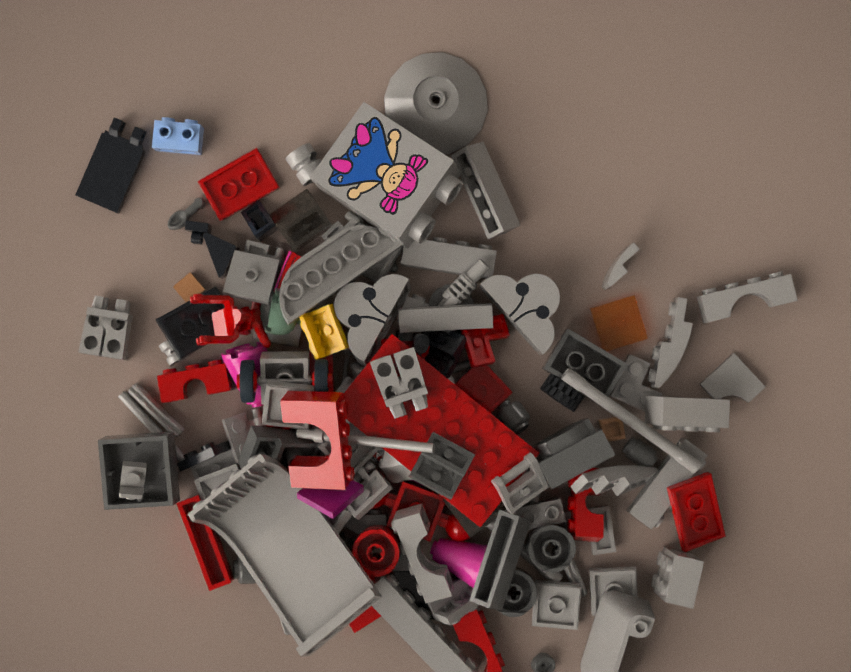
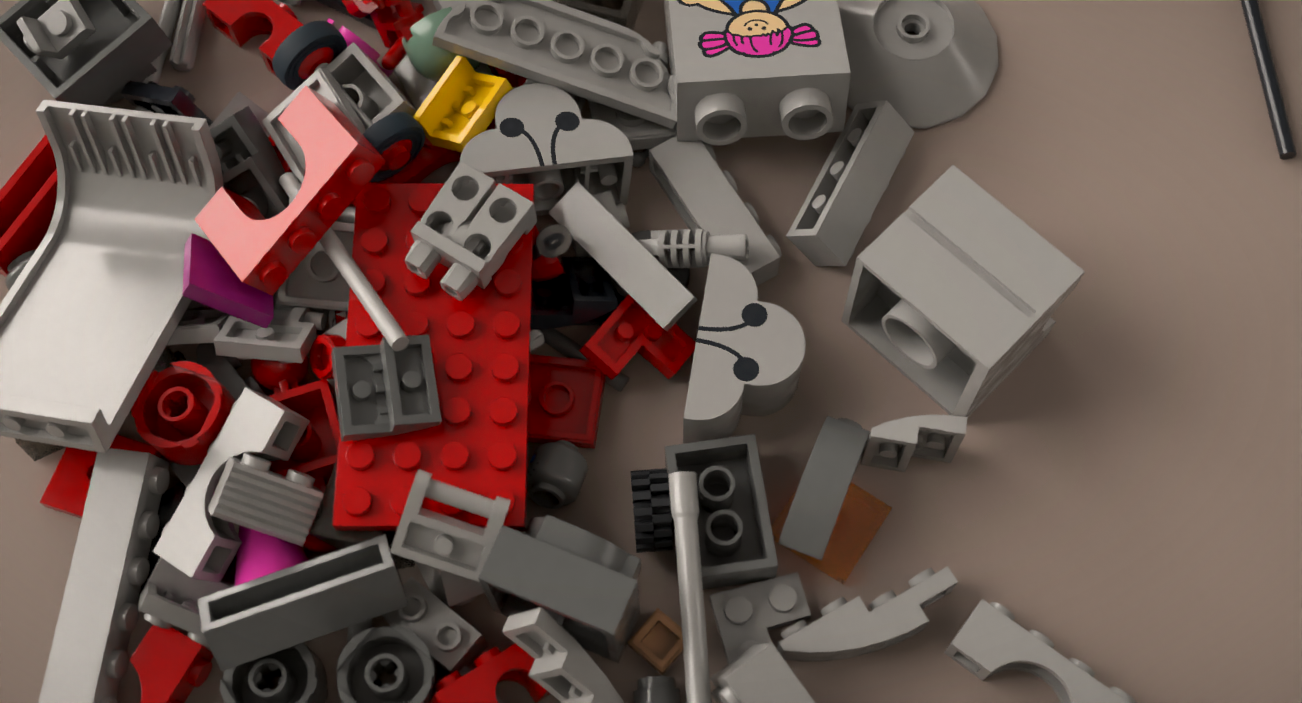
camera: 50 degrees right, 20 degrees down
(396, 474) = (321, 354): none -> red tile
(444, 545) = (265, 499): none -> light grey brick
(581, 197) = (957, 292): none -> light grey piece
(608, 314) = (824, 486): none -> dark grey arch

